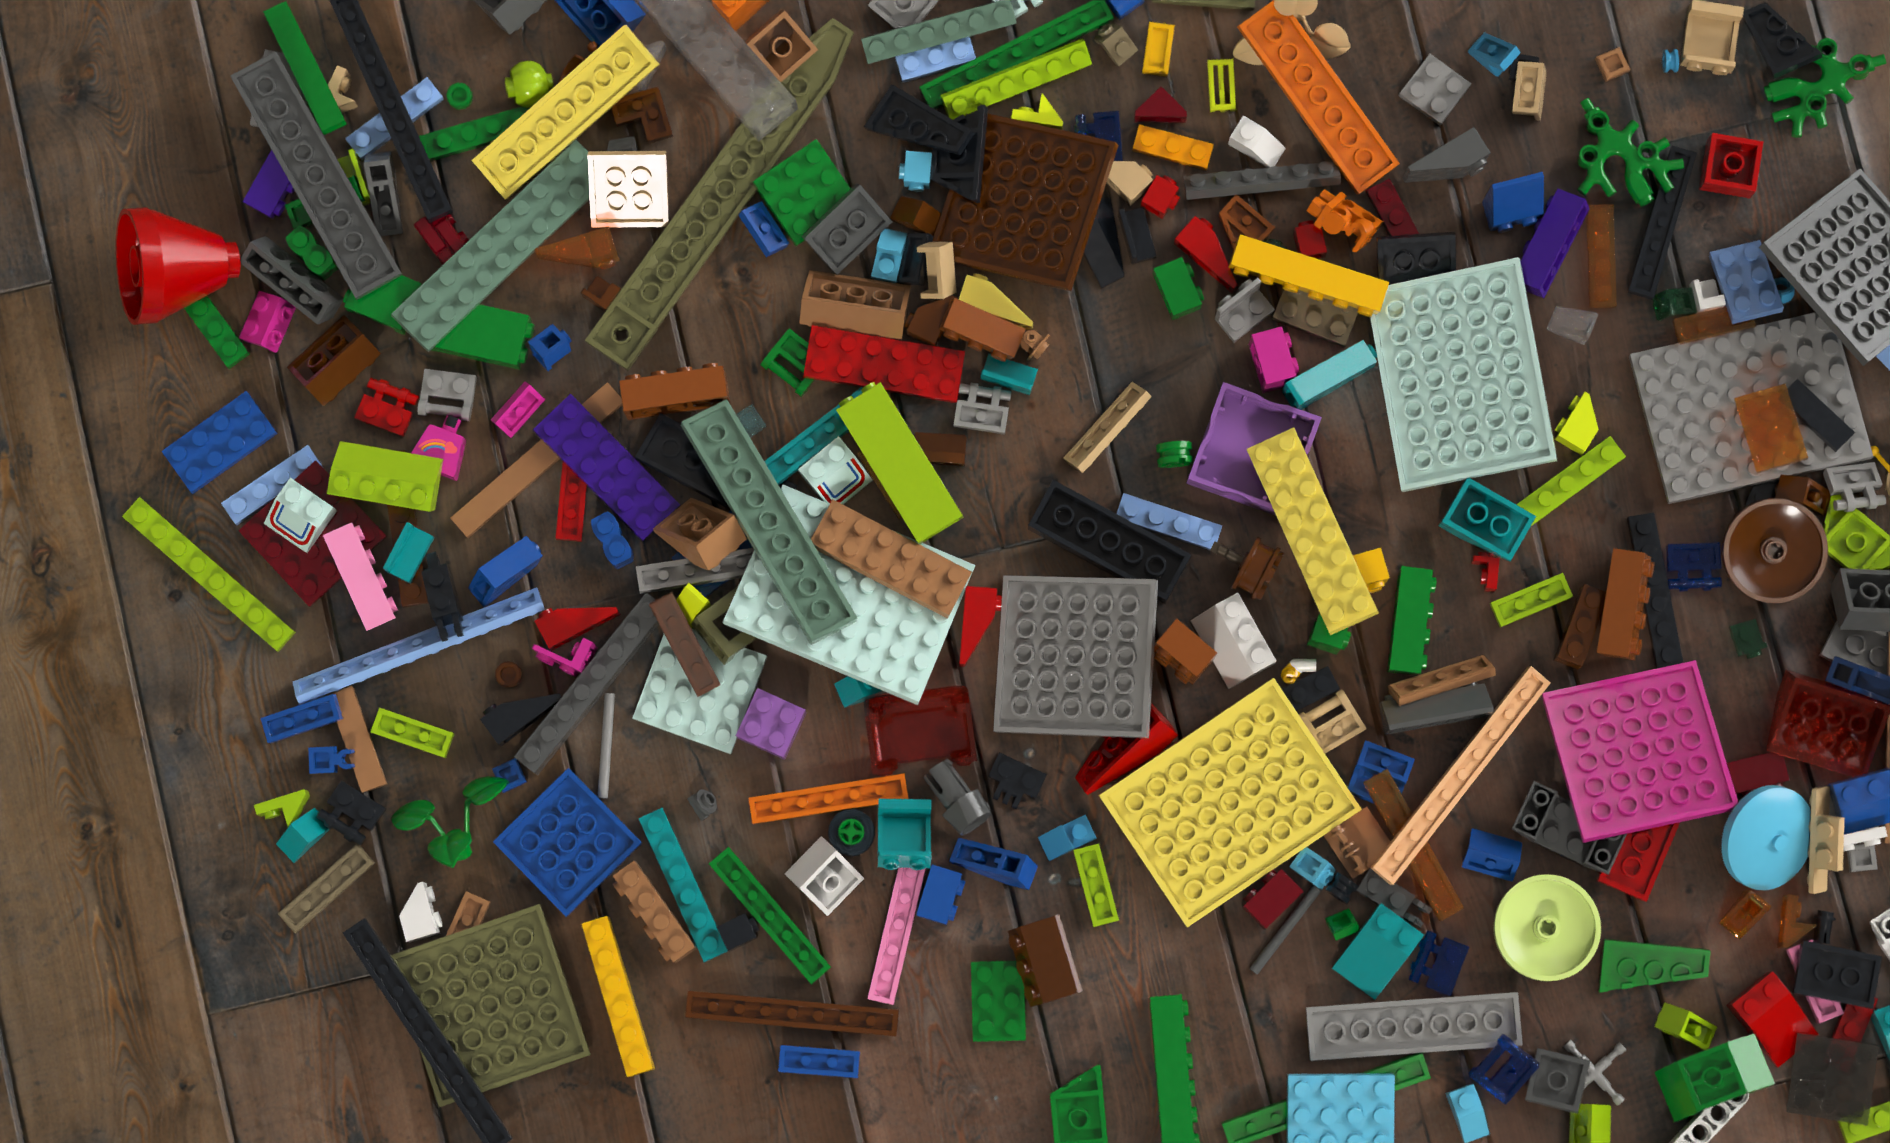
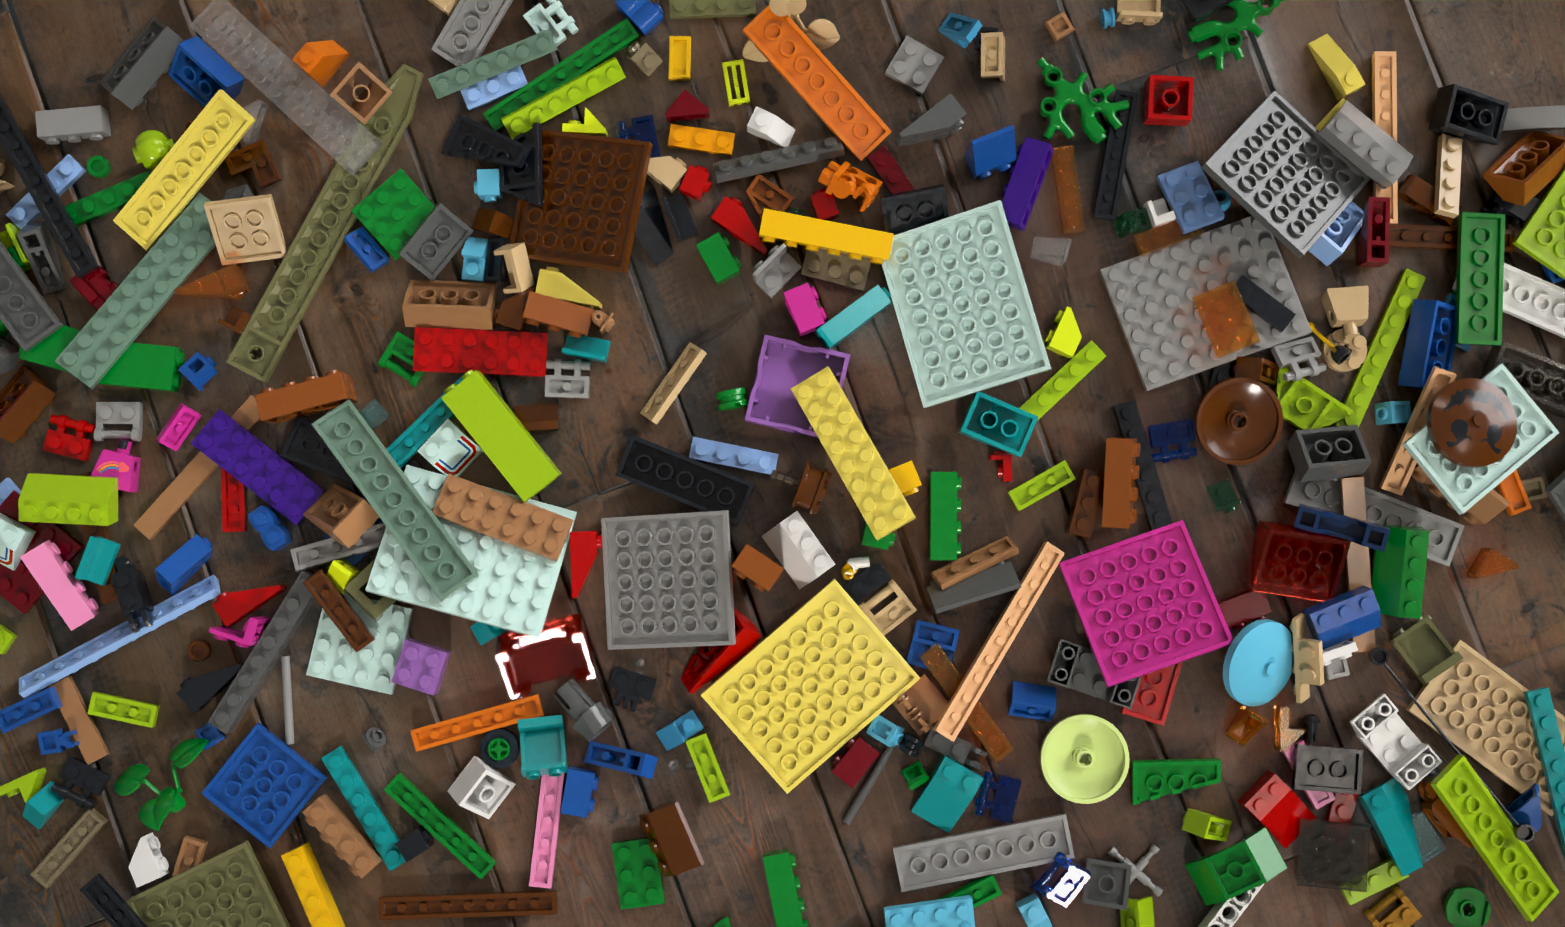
camera: 15 degrees left, 5 degrees up
(438, 43) = (73, 124): none -> light grey brick

